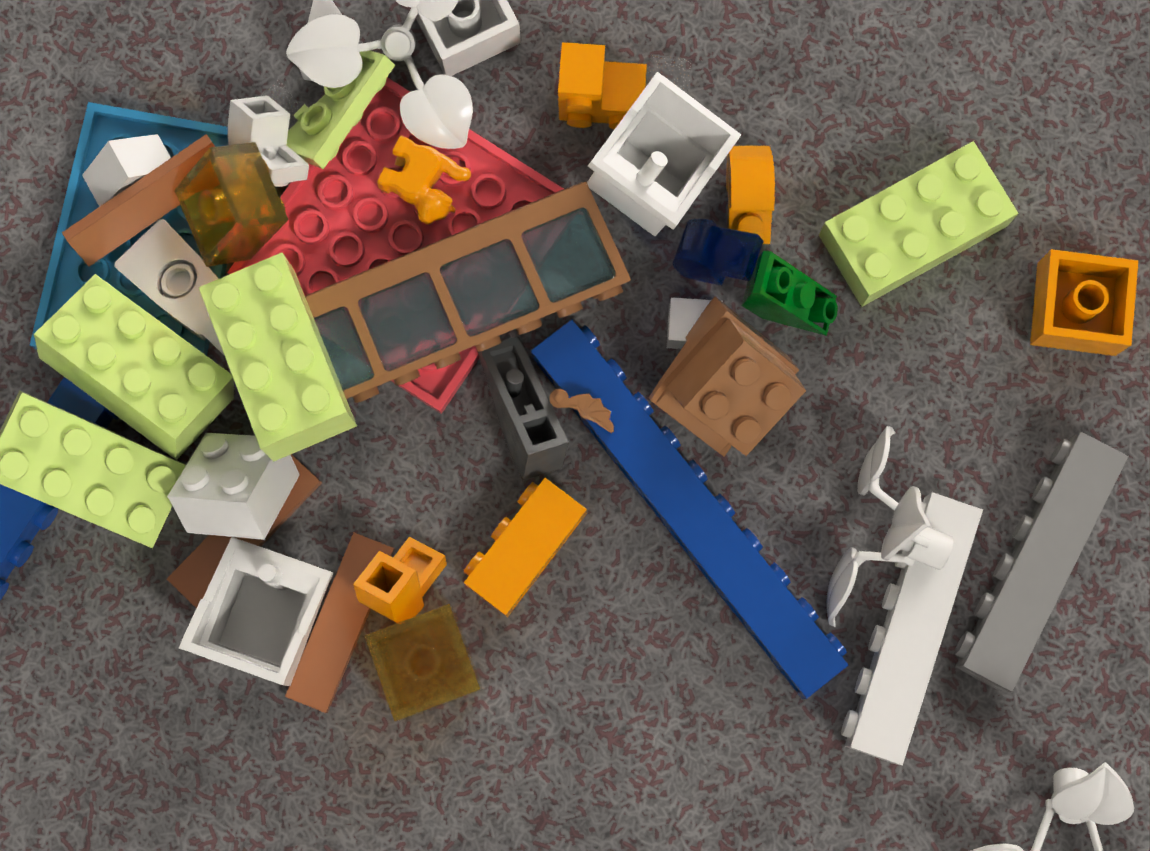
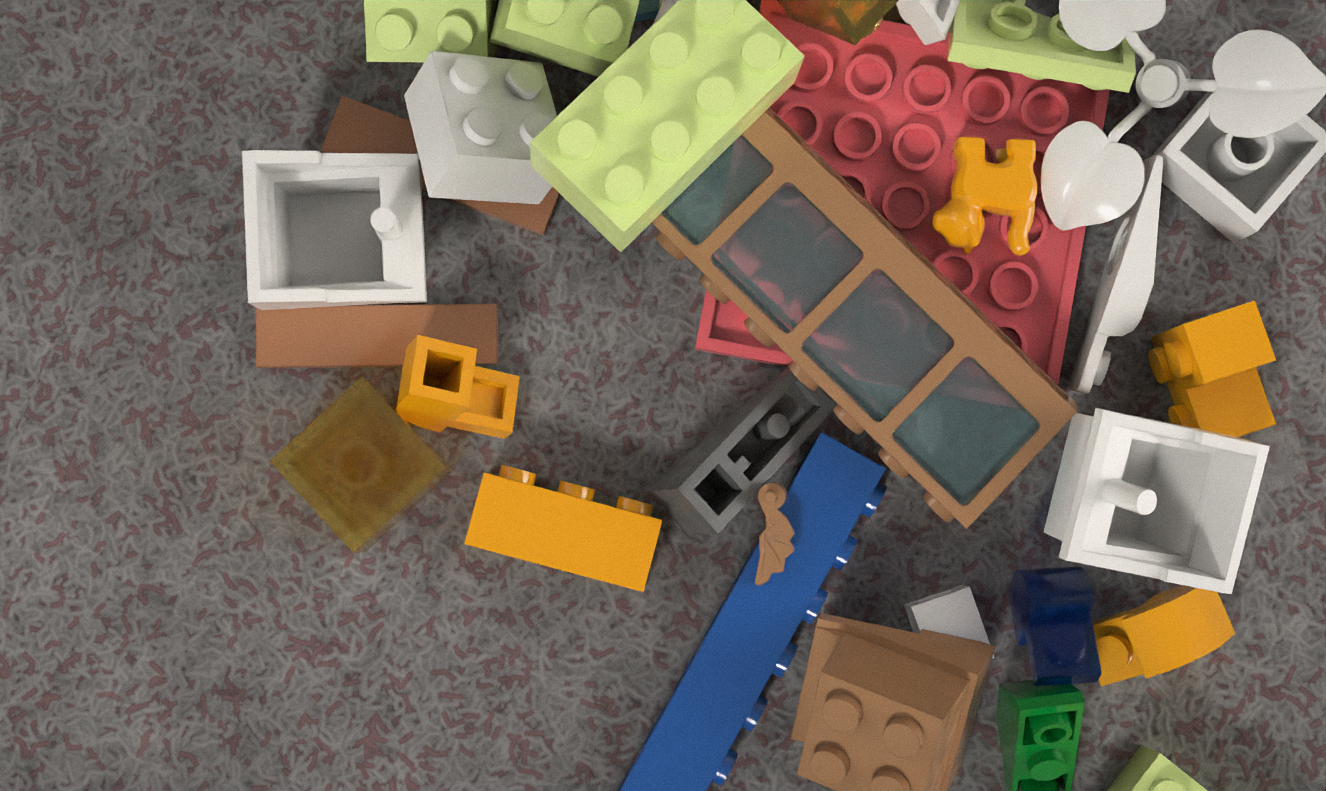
camera: 65 degrees right, 5 degrees up
(516, 120) = (1124, 282): none -> white piece

